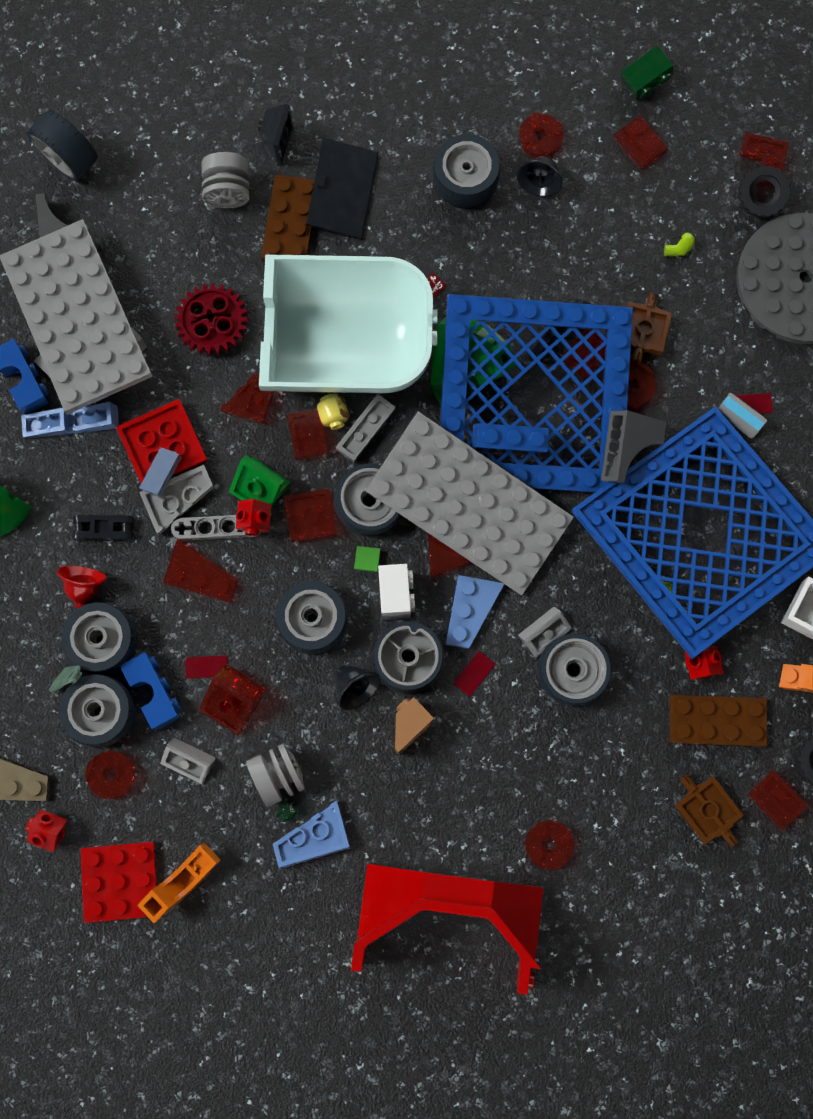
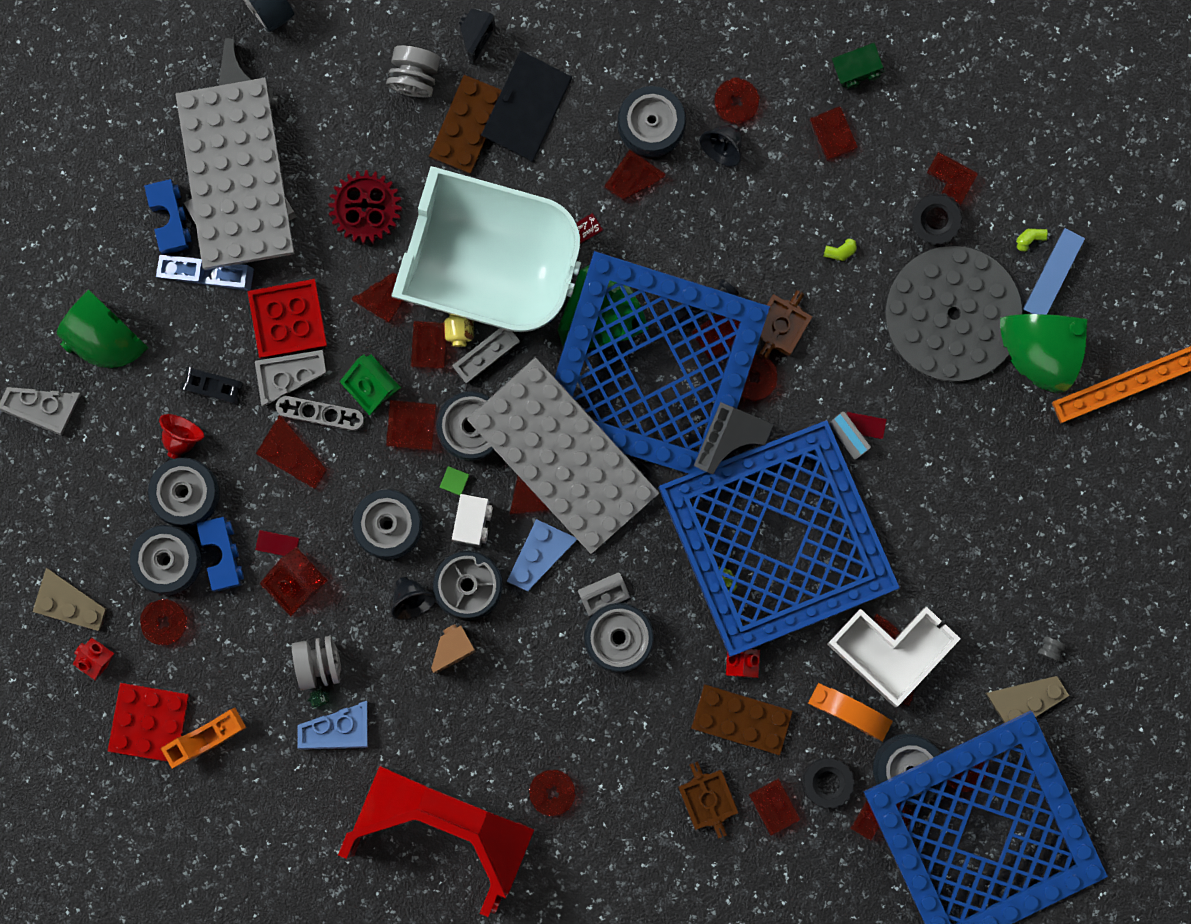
camera: 10 degrees right, 5 degrees up
(68, 675) = (143, 521): sand green piece -> none
(160, 472) = (279, 347): sand blue slope -> none
(187, 760) = (238, 627): light grey slope -> none
(253, 516) = (356, 415): red brick -> none
(462, 227) = (632, 176): none -> clear red wing
(474, 673) = (526, 616): dark red sticker -> none
(510, 437) = (617, 404): blue arch -> none

